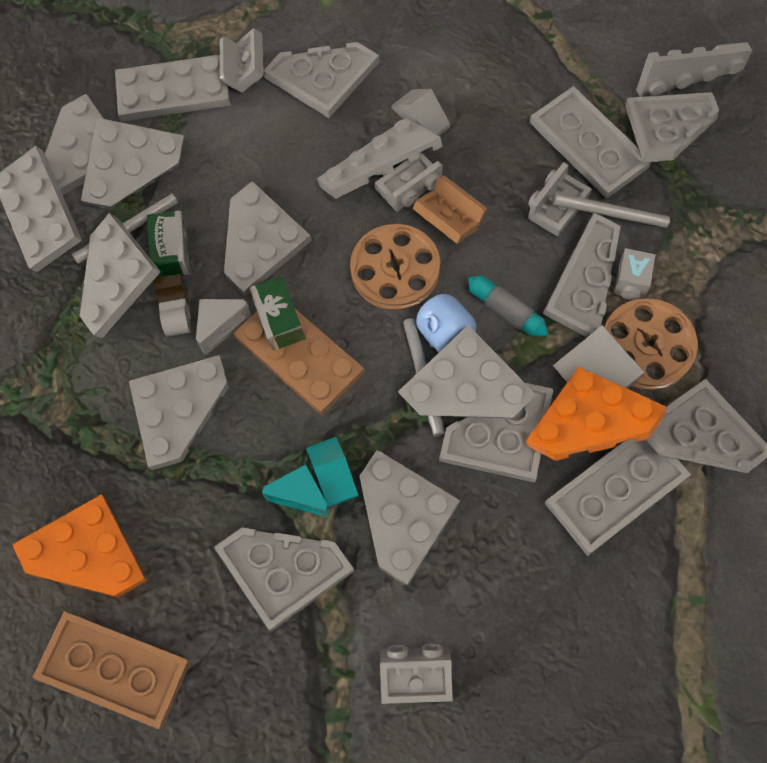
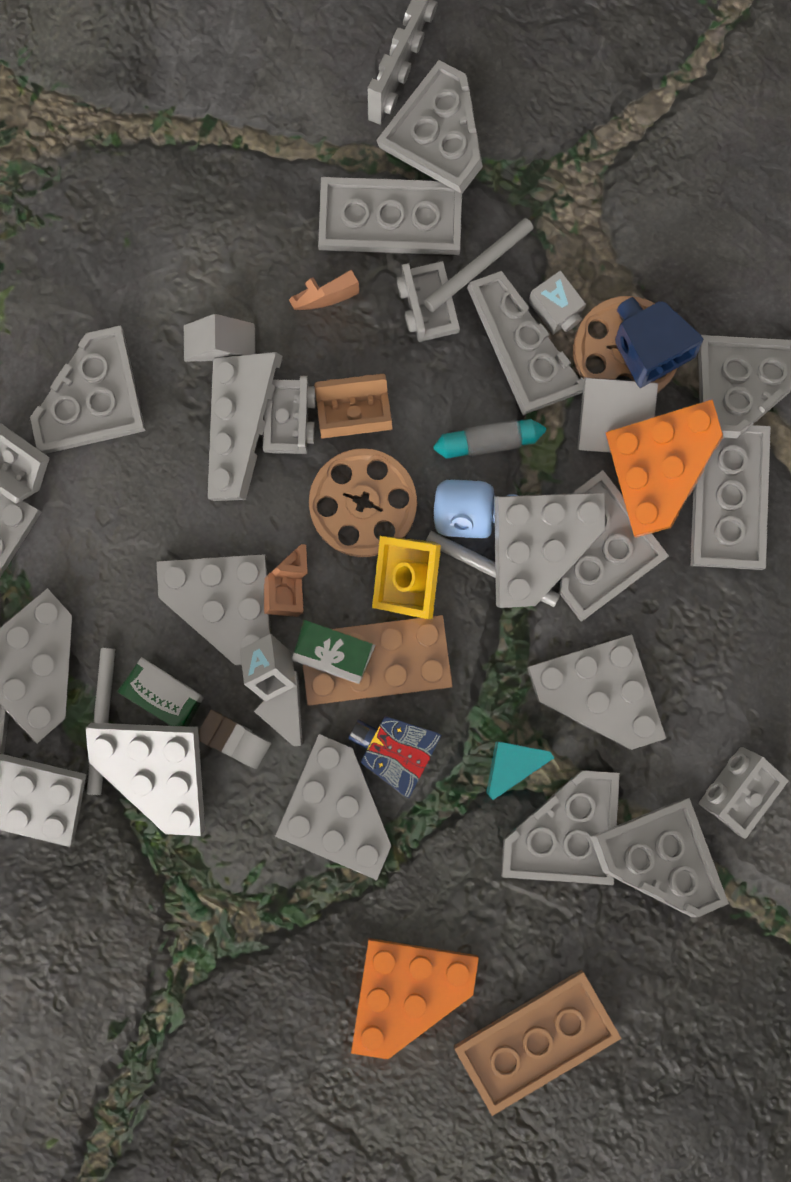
camera: 60 degrees left, 15 degrees up
(232, 282) = (267, 667): none -> light grey brick
(245, 410) = (396, 751): none -> torso
(300, 261) = (284, 585): none -> nougat slope
(317, 651) = (664, 858): none -> light grey plate
(332, 472) = (512, 720): teal slope -> none
(370, 324) = (406, 576): none -> yellow slope
(508, 145) = (329, 294): none -> nougat slope
(670, 346) = (654, 340): none -> dark blue torso

